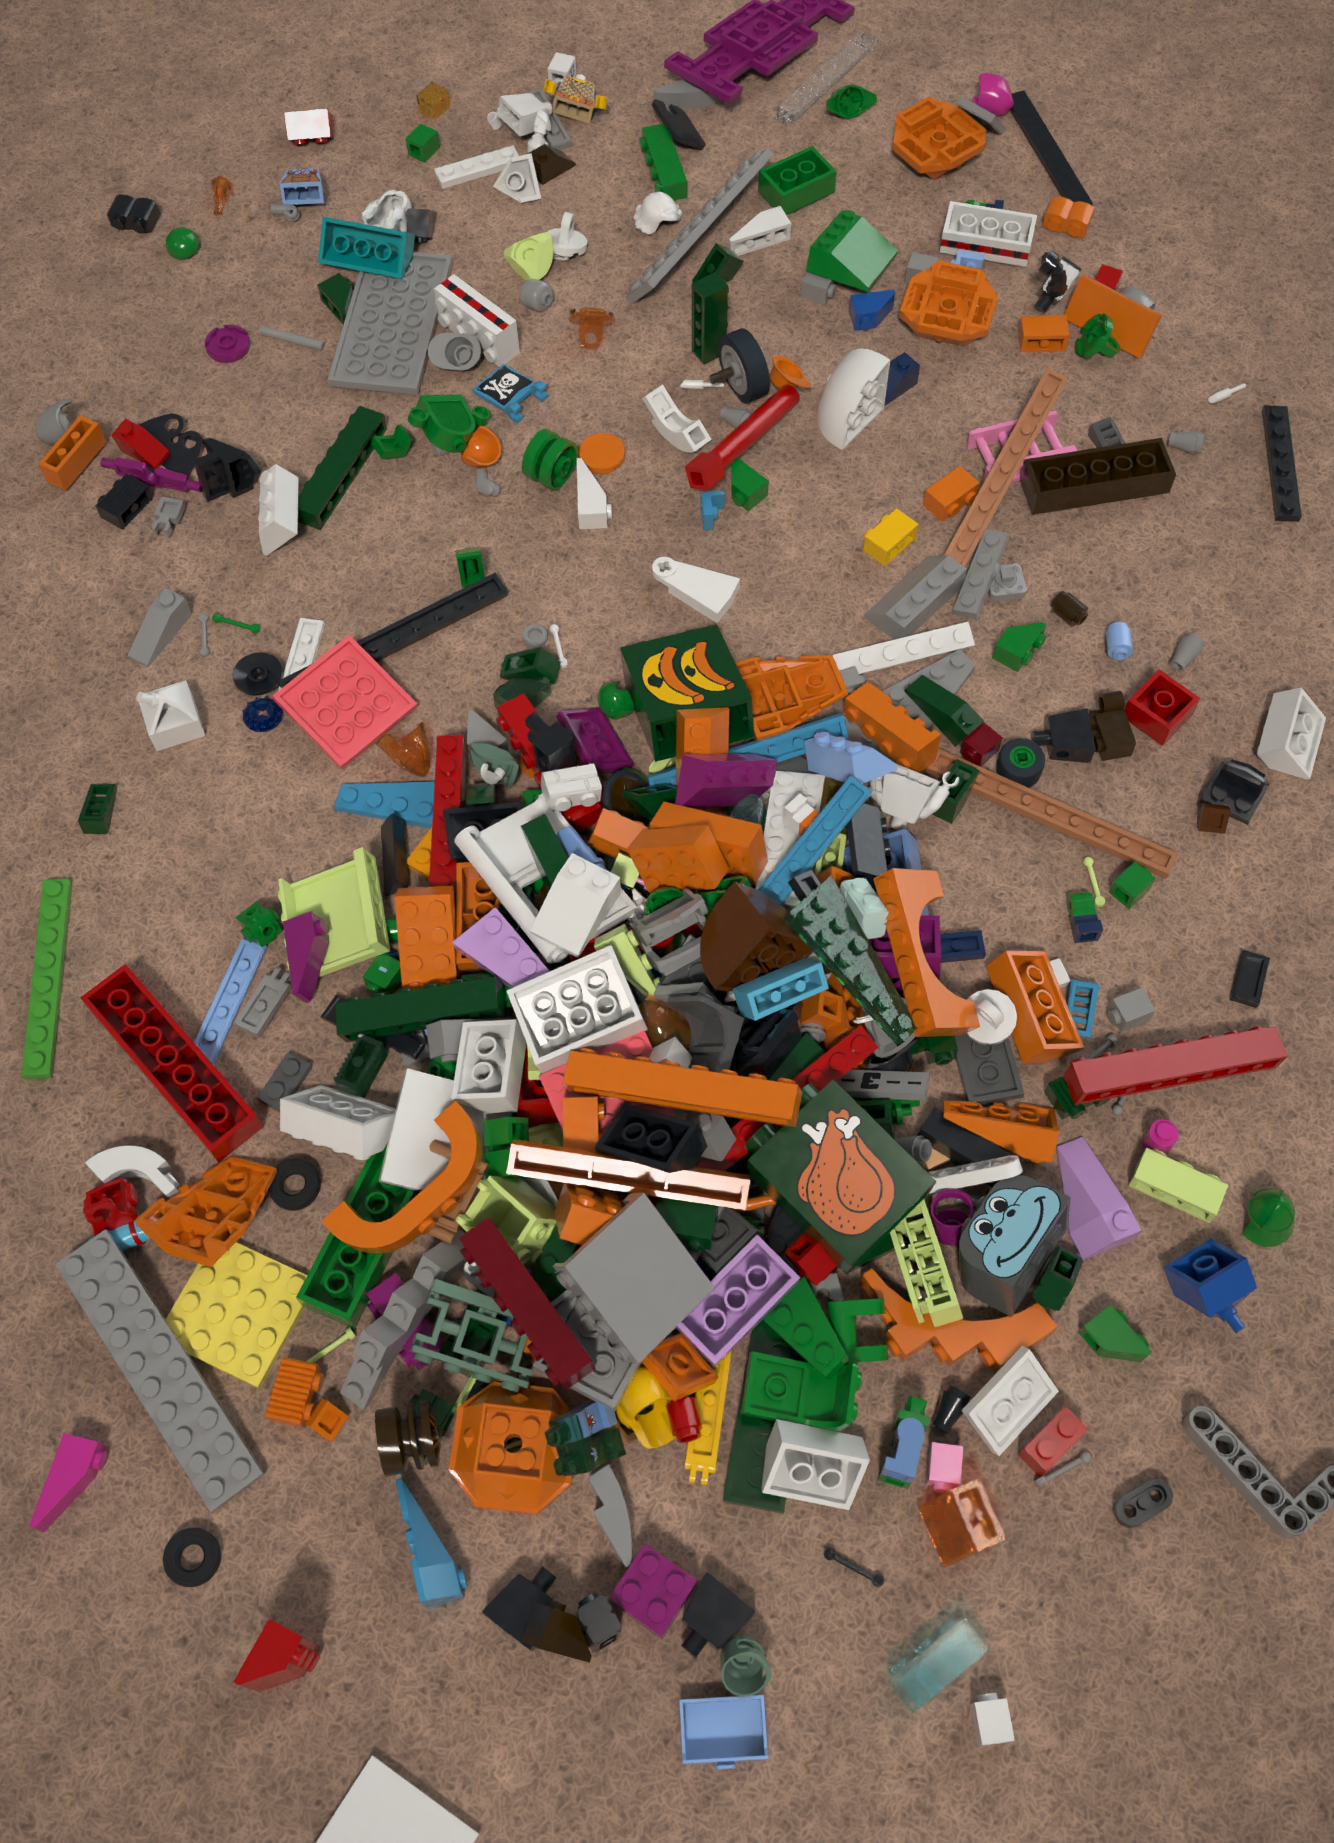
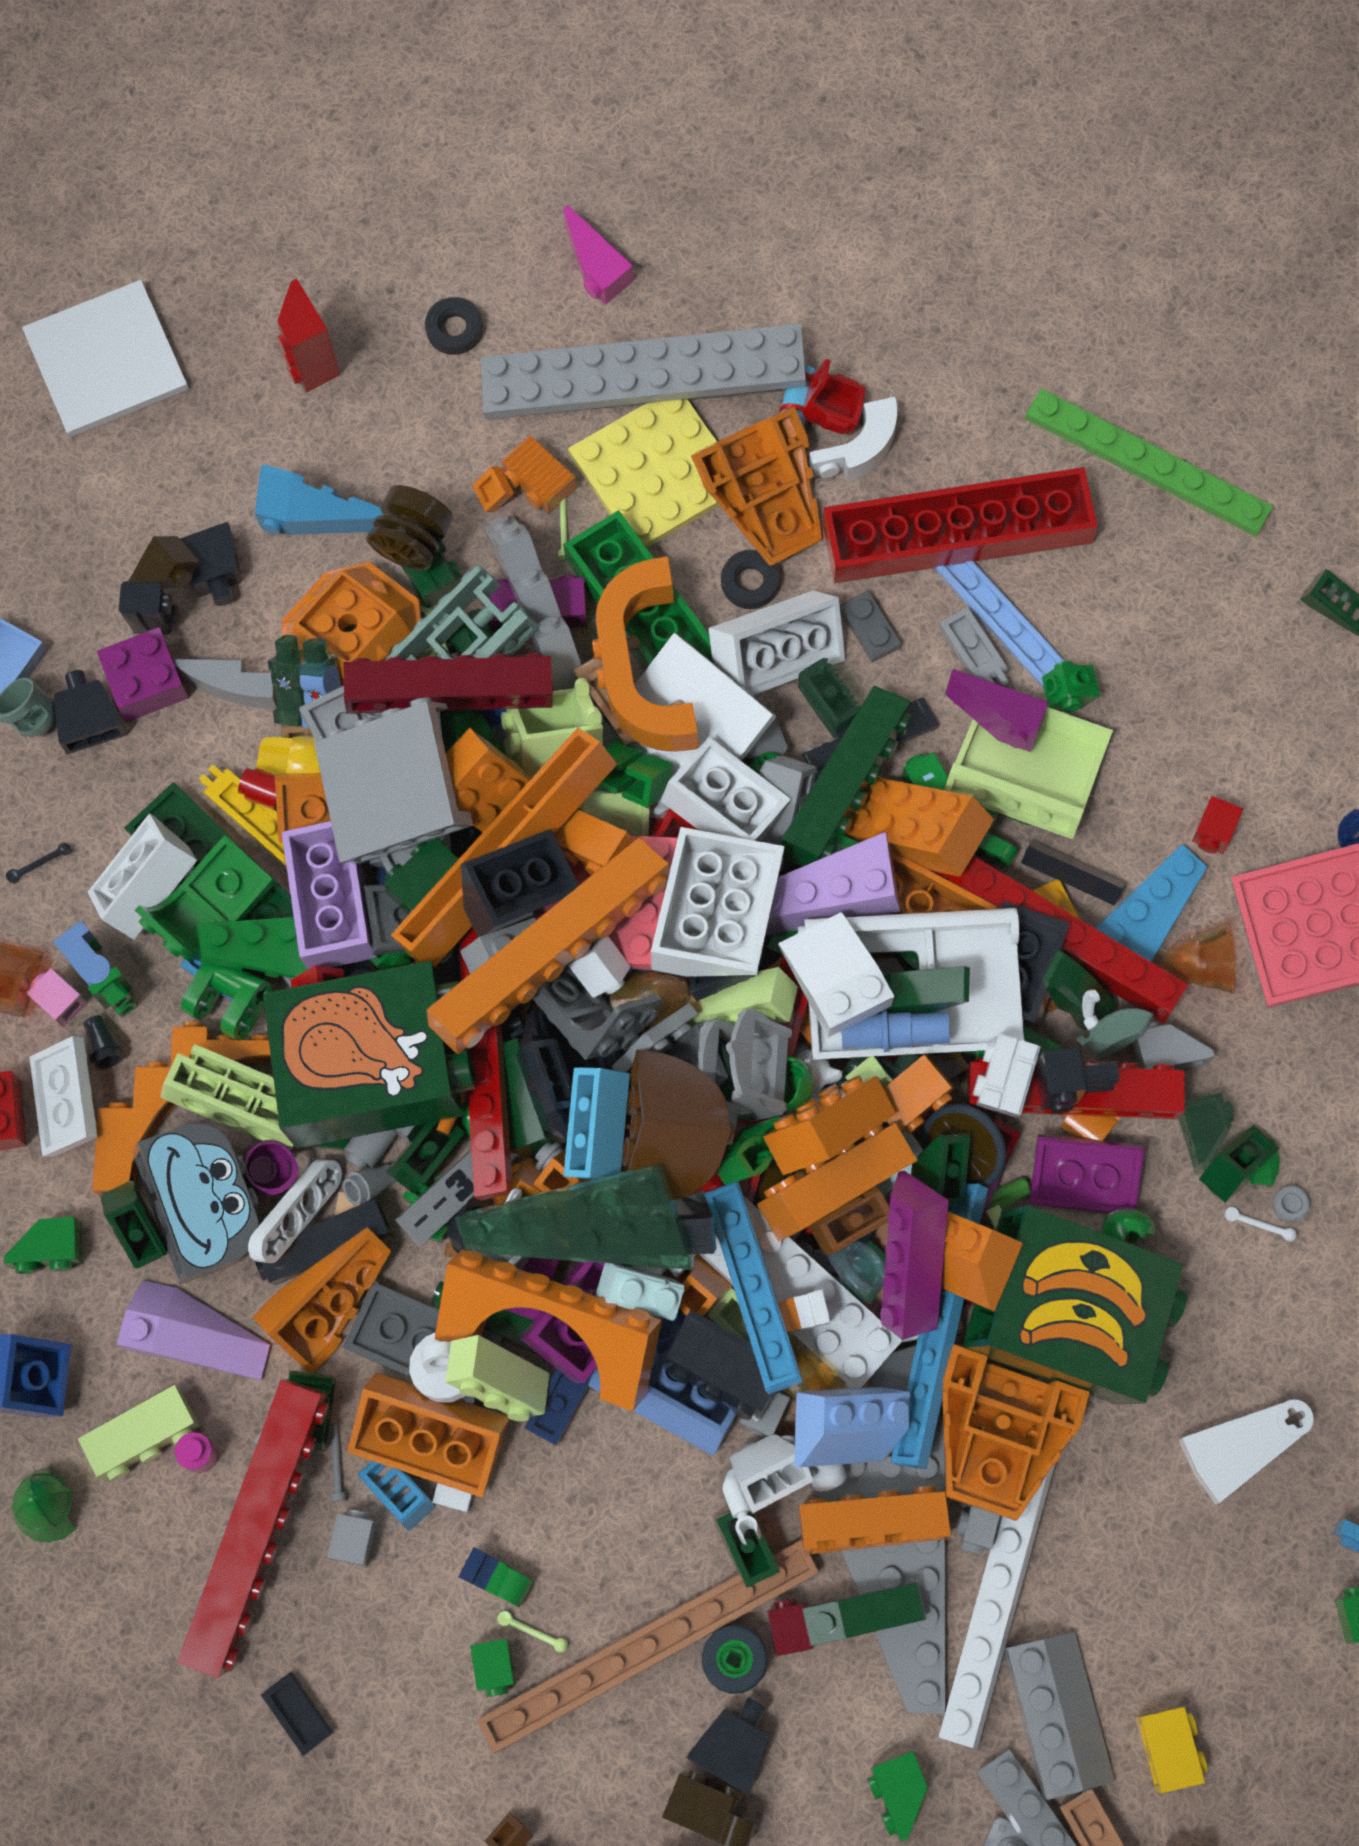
camera: 125 degrees right, 10 degrees up
(309, 791) = (1216, 825): none -> red brick
(975, 973) = (497, 1378): none -> yellowish green brick

